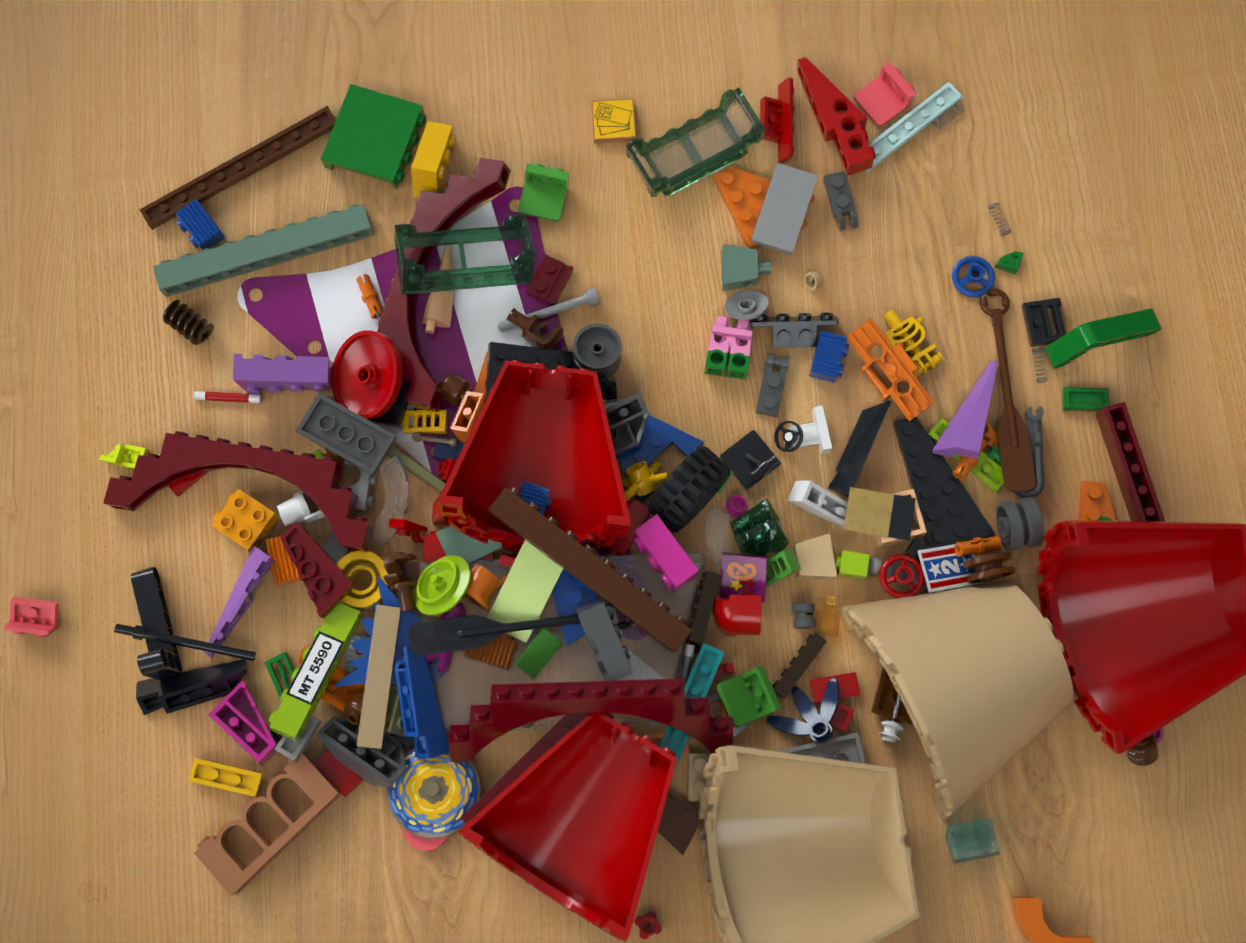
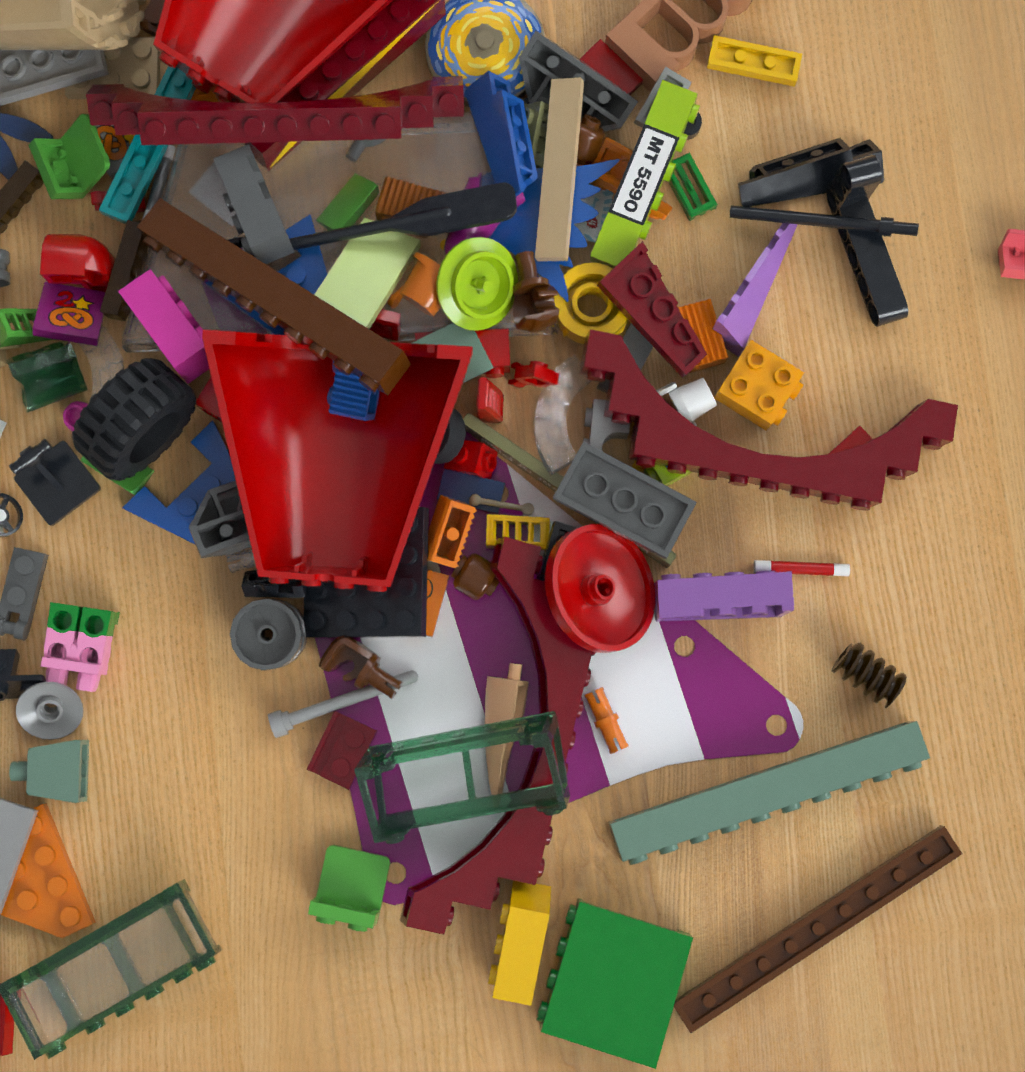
camera: 175 degrees right, 5 degrees up
(124, 455) = (935, 481): neon yellow slope -> none
(199, 224) = (869, 830): blue brick -> none
(244, 723) = (734, 119): dark pink wedge -> none
(613, 120) = (244, 1017): yellow tile -> none
(642, 479) = (205, 444): yellow bar -> none

